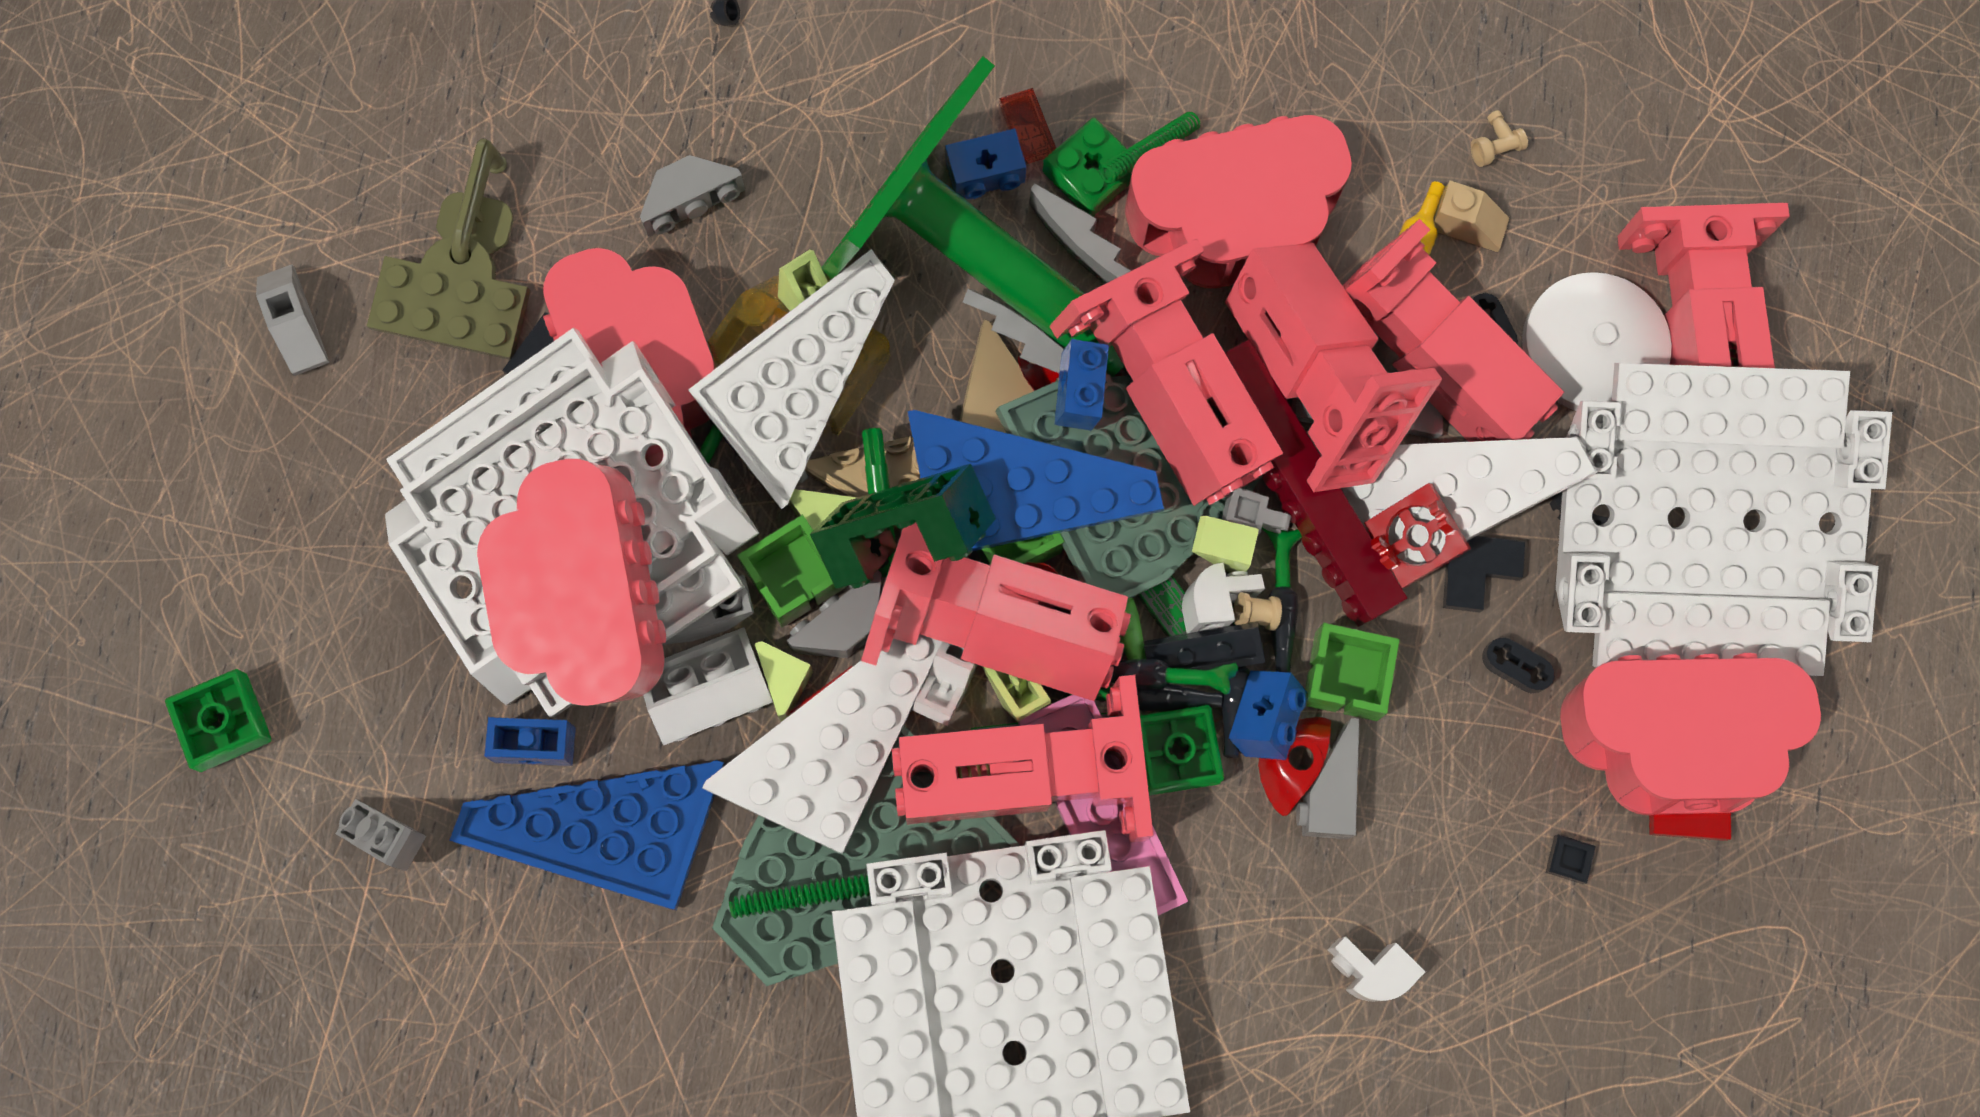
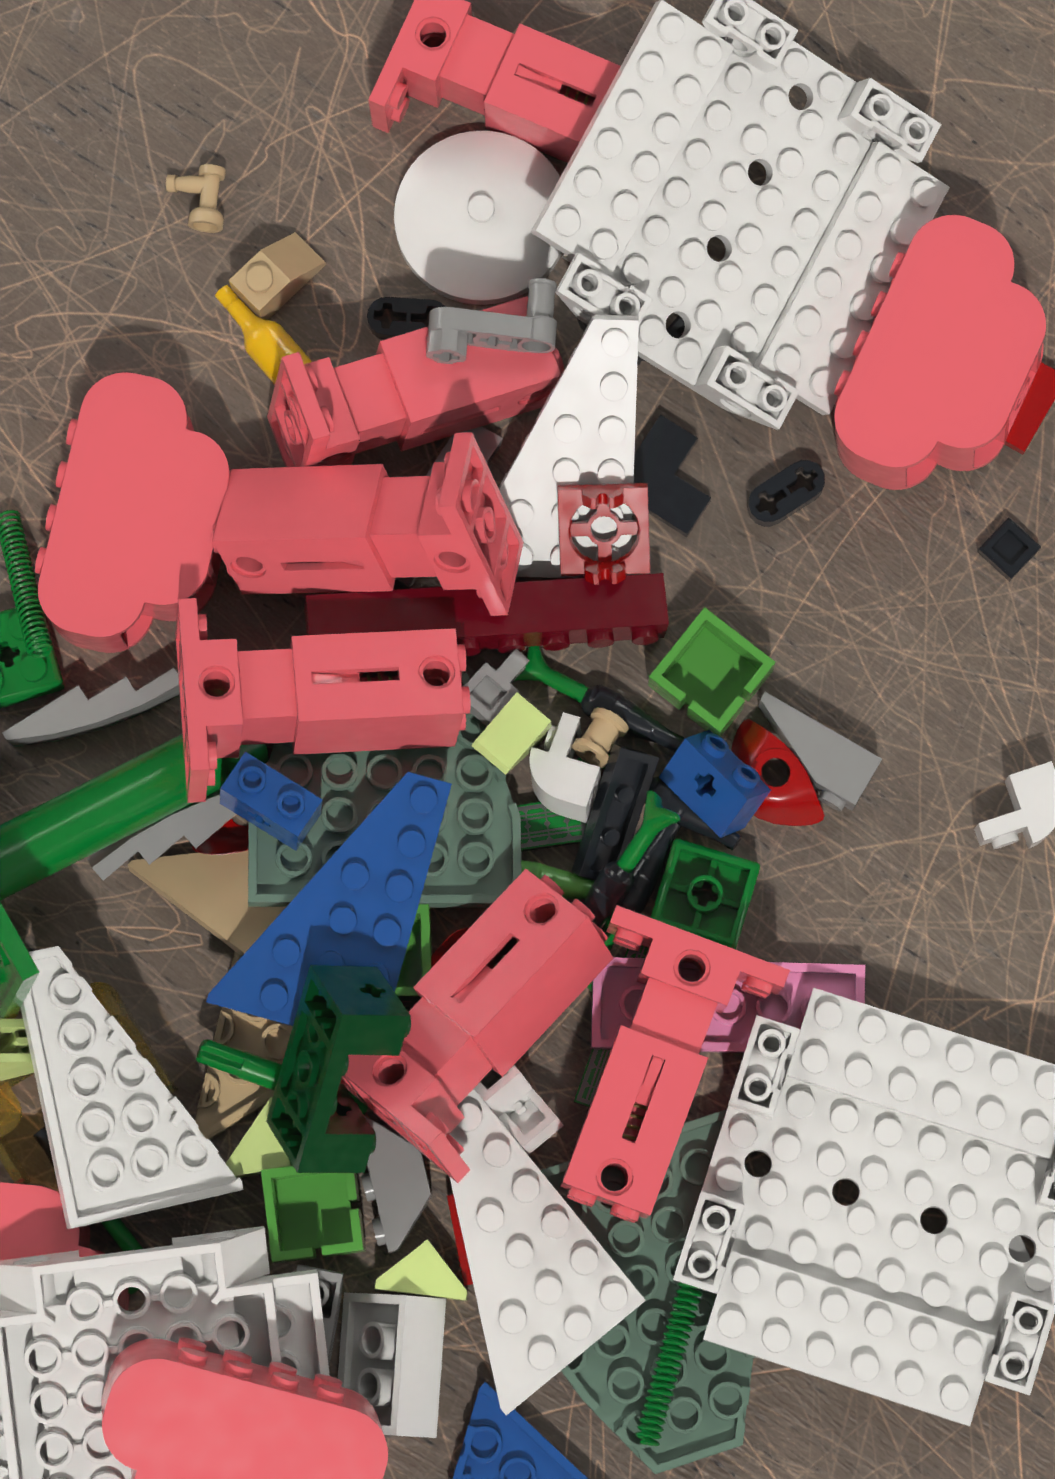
camera: 55 degrees left, 5 degrees up
(1016, 694) = (569, 1034): yellowish green slope -> none
(1513, 347) = (455, 328): none -> light grey beam

